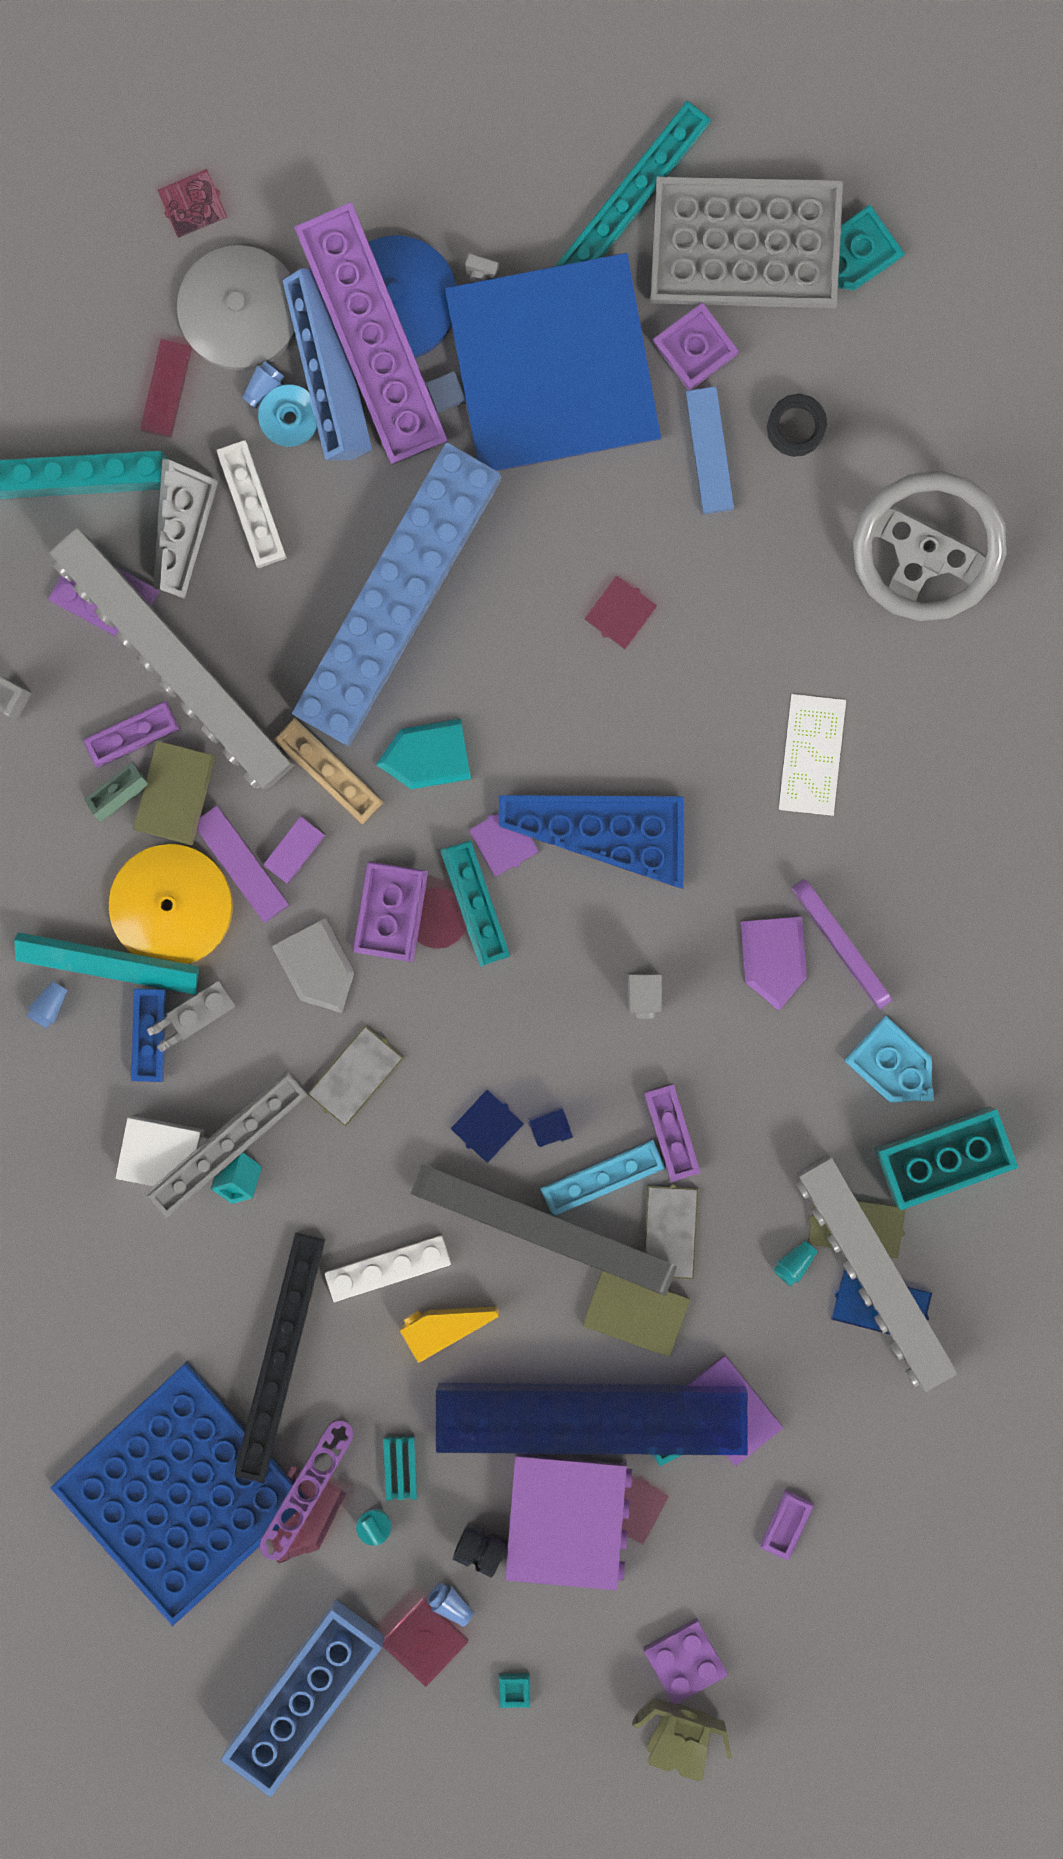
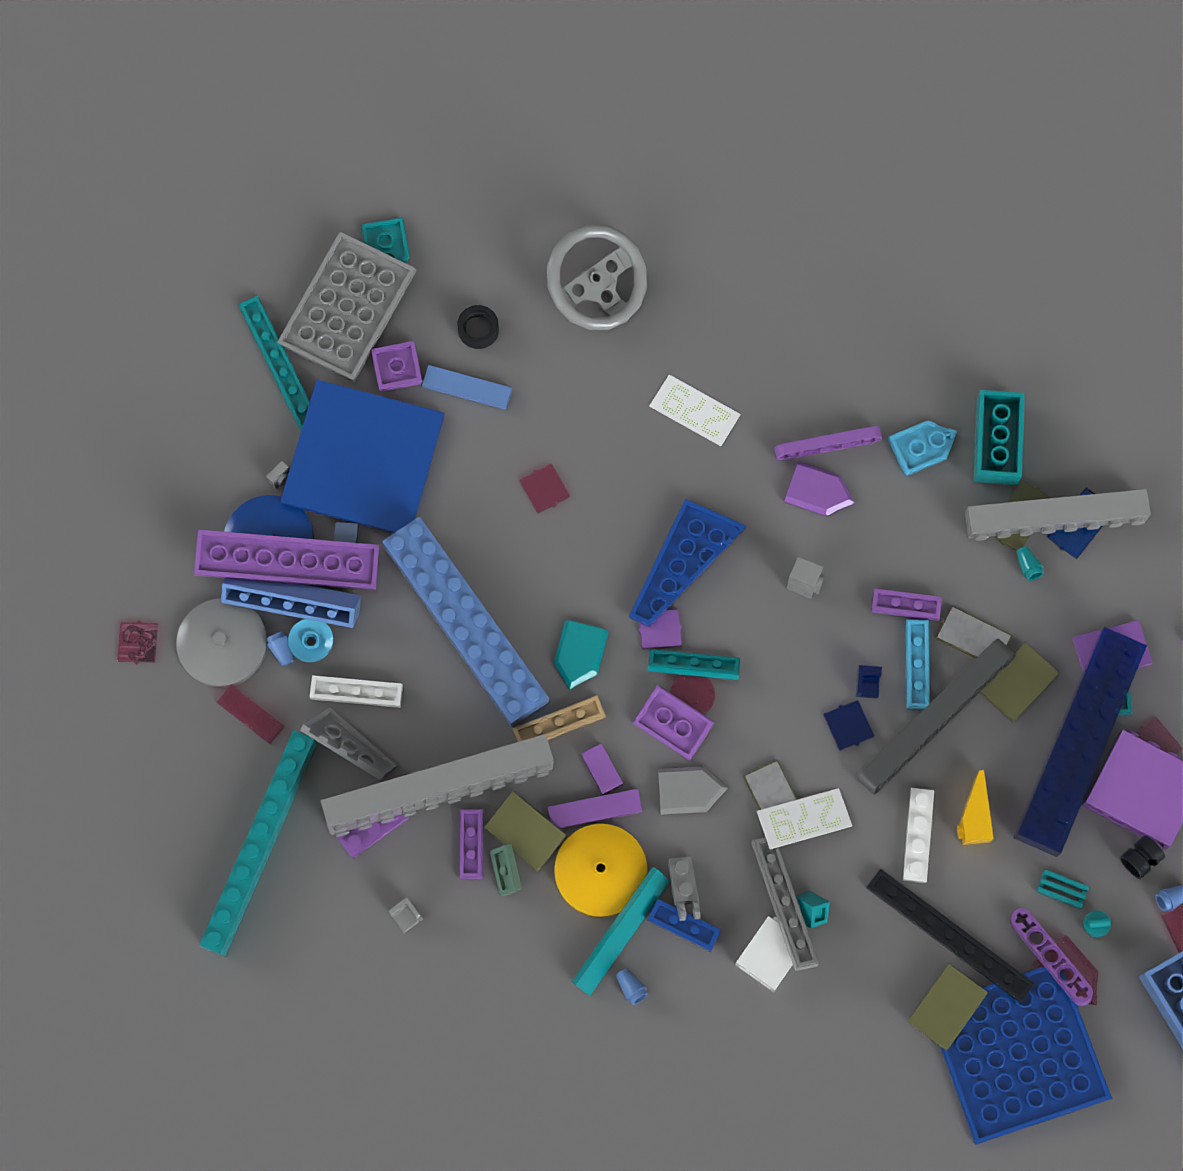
camera: 55 degrees left, 15 degrees down
(191, 1390) = (947, 1007): none -> olive tile
(344, 1122) = (804, 818): none -> white sticker

